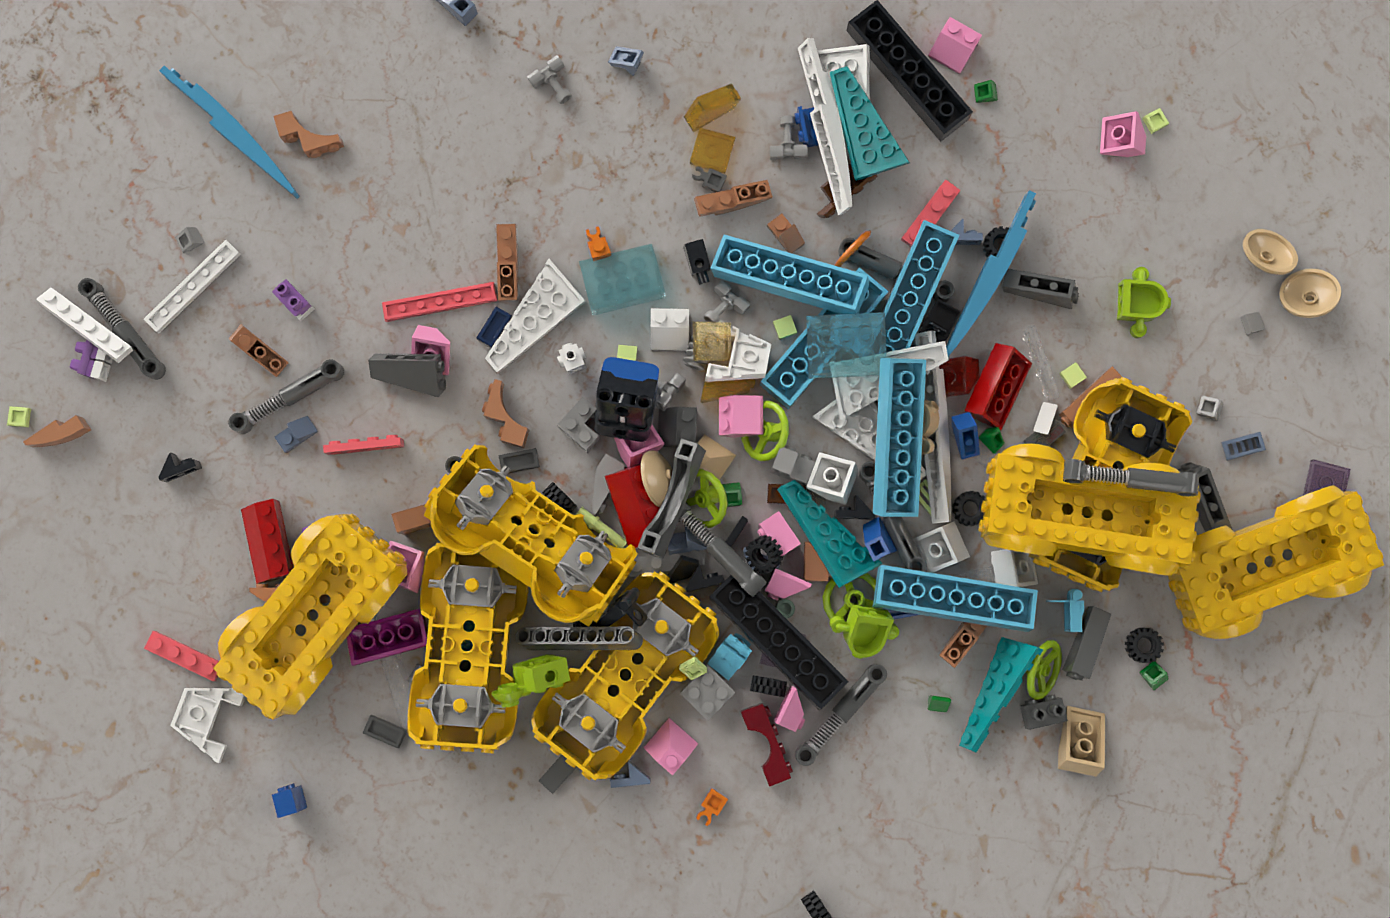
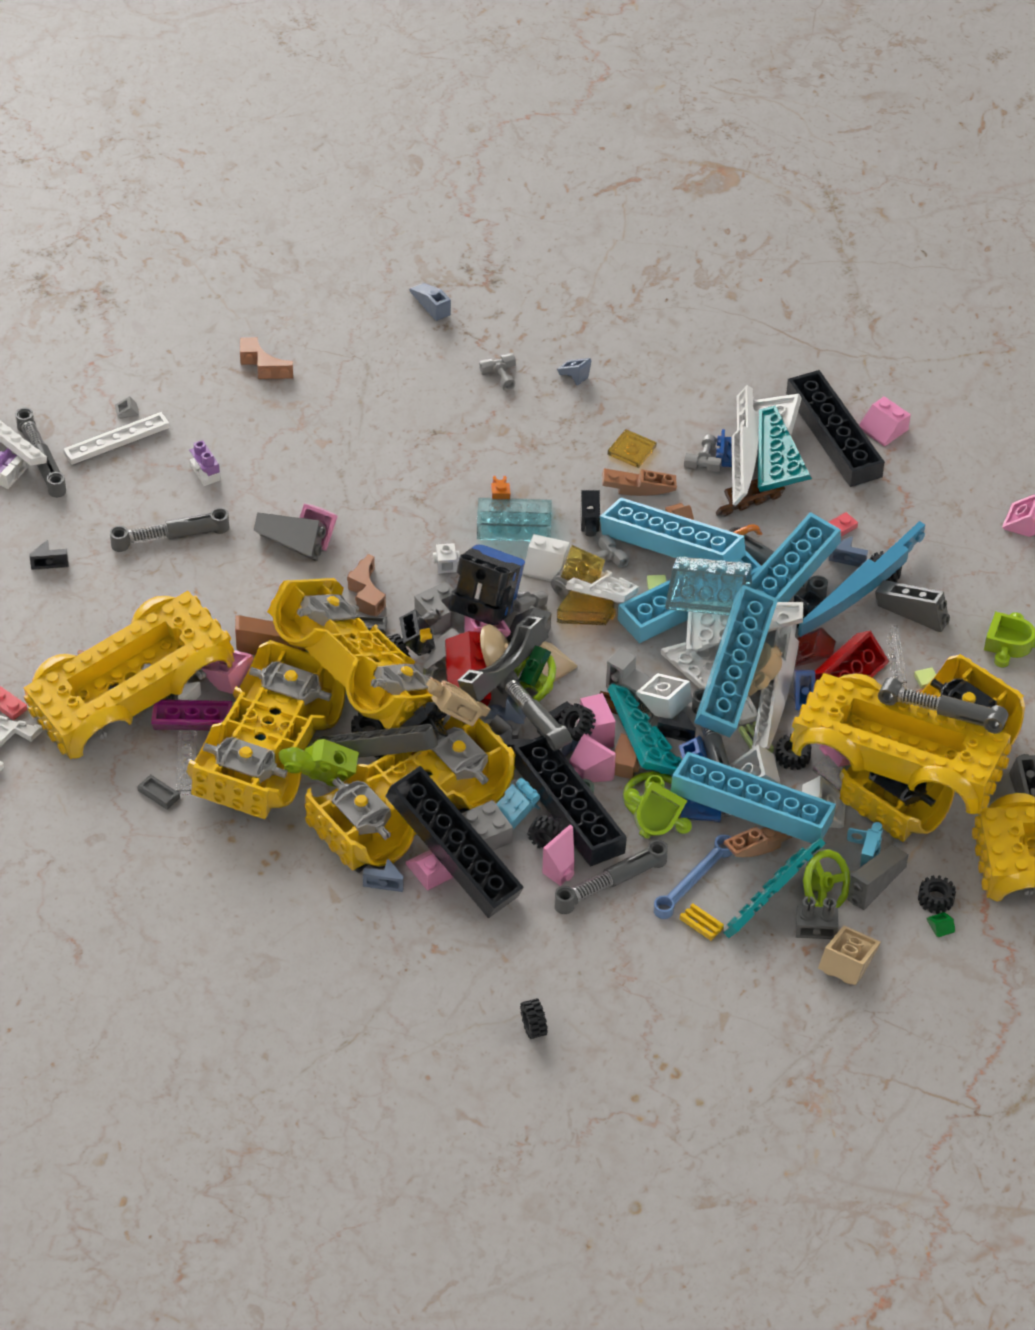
camera: 15 degrees right, 35 degrees down
(229, 127) = (197, 342): dark azure slope -> none
(258, 350) = (156, 491): nougat slope -> none
(267, 540) = (107, 615): red slope -> none
(289, 800) = (48, 812): blue brick -> none
(296, 433) = (170, 558): sand blue slope -> none
(356, 445) = (226, 579): coral plate -> none
(439, 301) = (337, 498): coral tile -> none
(494, 326) = (381, 526): dark blue tile -> none
(507, 262) = (412, 479): nougat slope -> none
(541, 310) = (427, 522): white wing -> none
(556, 774) = (315, 861): dark grey tile -> none
(576, 476) = (417, 631): none -> black torso
(647, 587) = (456, 701): none -> tan piece
(688, 739) = (454, 841): none -> black brick
(693, 668) = (477, 794): yellowish green tile -> none
(703, 493) = (534, 666): none -> dark green plate
(711, 106) = (641, 414): clear yellow slope -> none
(712, 180) = (623, 464): dark grey plate -> none
(713, 804) = (457, 917): orange plate -> none
(733, 494) = (562, 692): green slope -> none
(740, 416) = (590, 629): bright pink slope -> none
(771, 432) = (611, 644): lime piece -> none
(775, 768) = (526, 864): dark red arch -> none
(916, 687) = (691, 879): none -> medium blue piece
(938, 703) = (713, 891): green slope -> none
(951, 746) = (704, 920): none -> yellow tile
(985, 91) = (905, 462): green slope -> none

